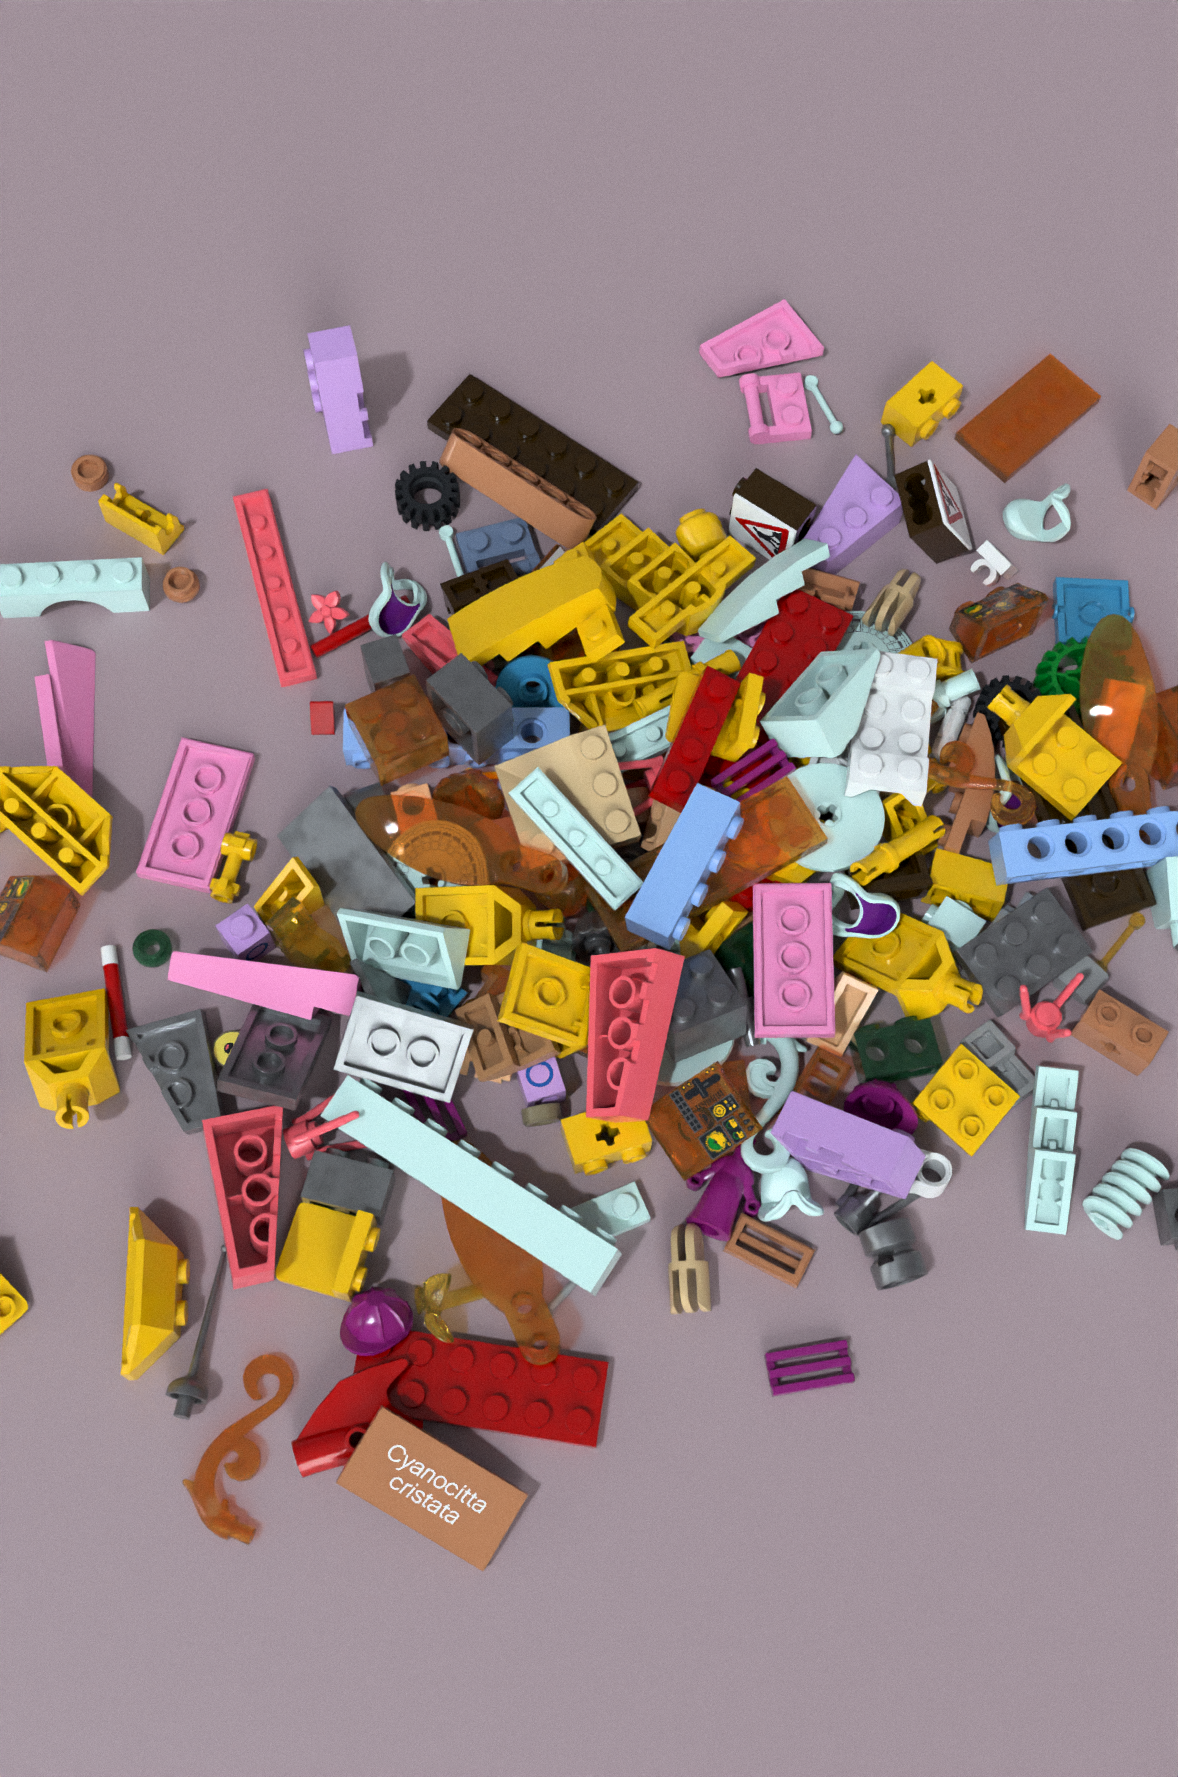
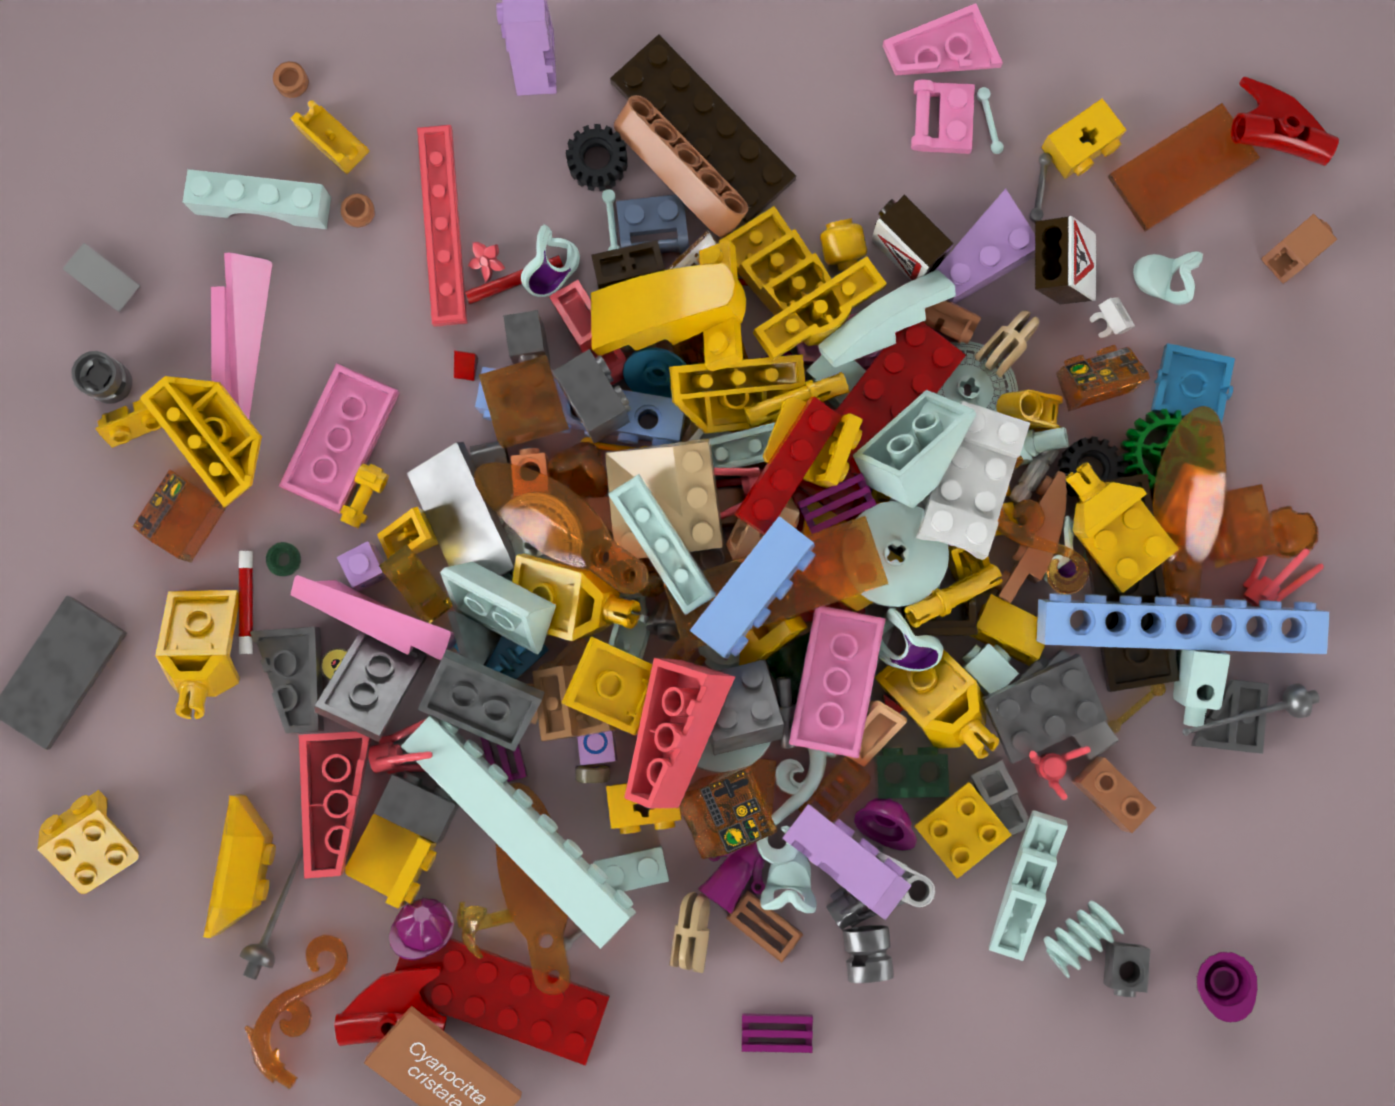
camera: 20 degrees right, 15 degrees up
(1114, 364) = (1282, 125): none -> red pin

